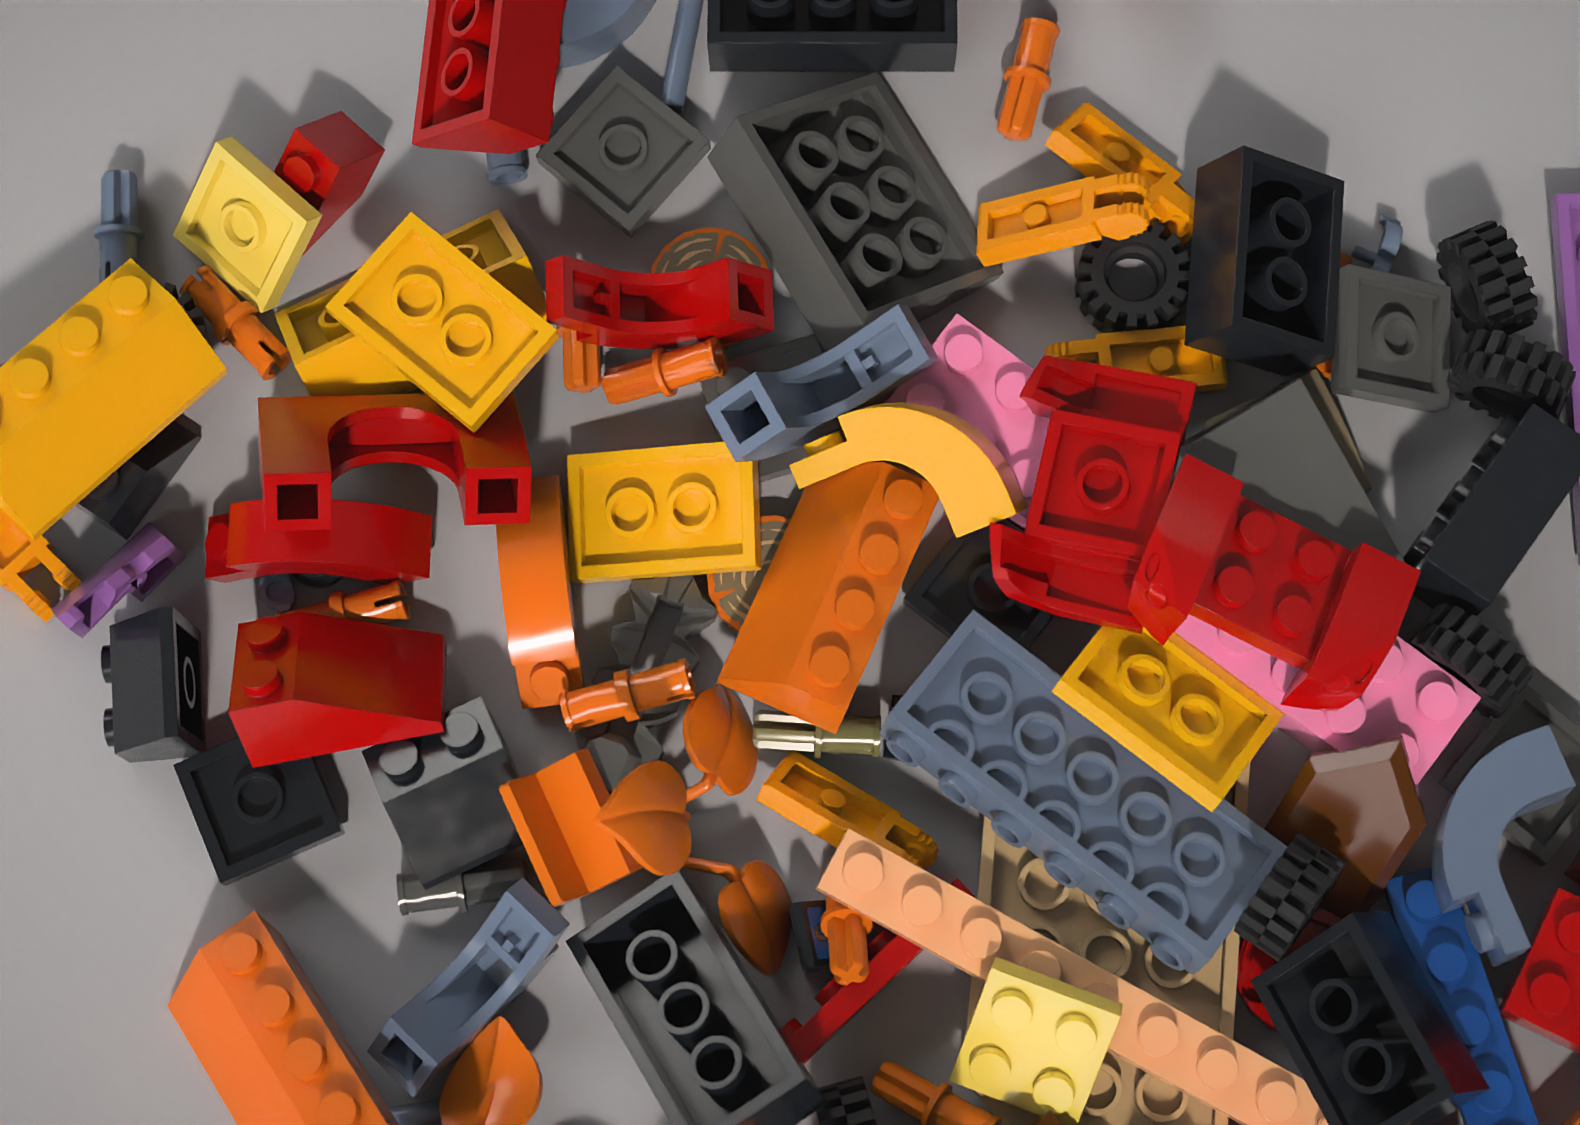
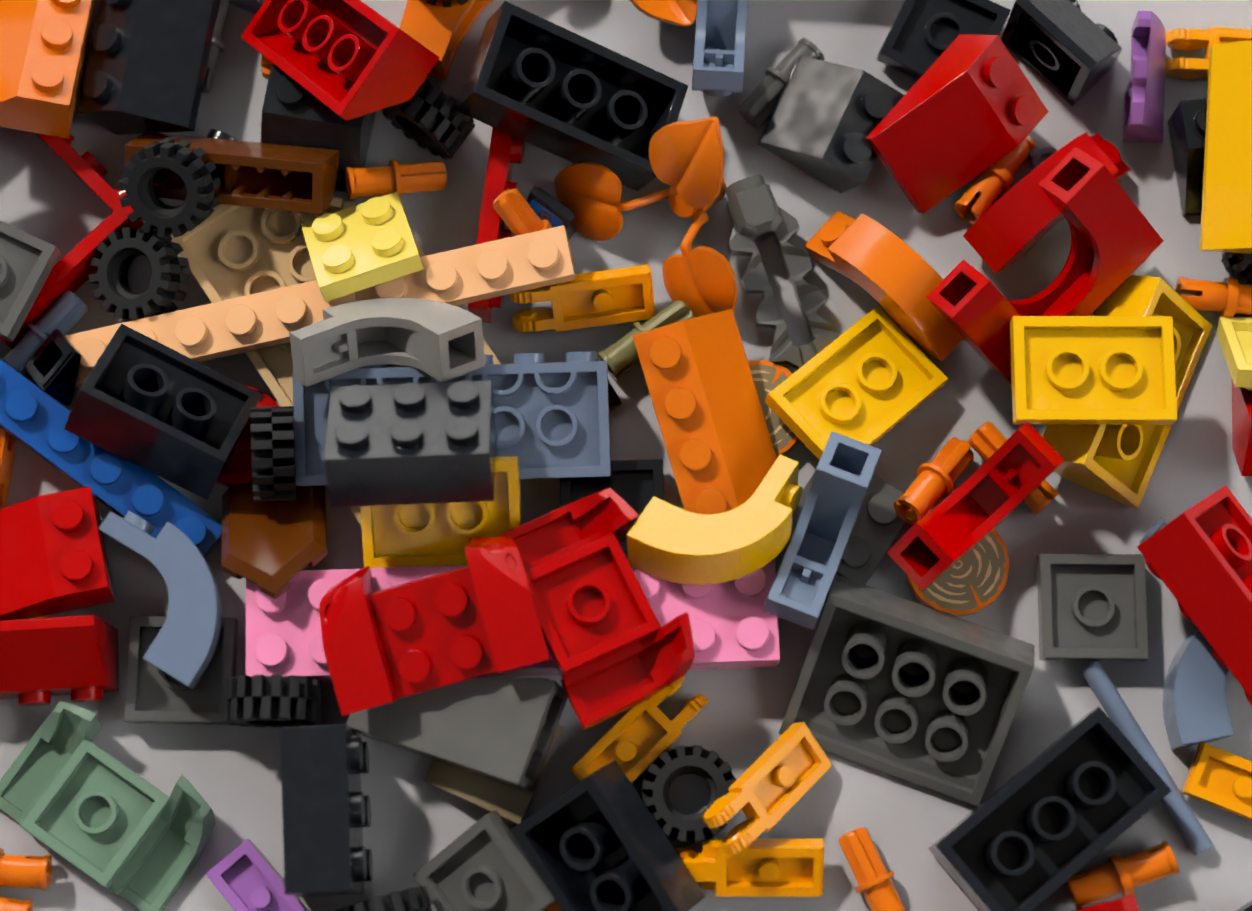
camera: 140 degrees right, 0 degrees up
(557, 827) = (755, 145): orange panel -> none
(627, 695) = (777, 255): orange pin -> none
(1078, 921) = (389, 331): none -> light grey arch
(1156, 767) = (410, 444): none -> black brick

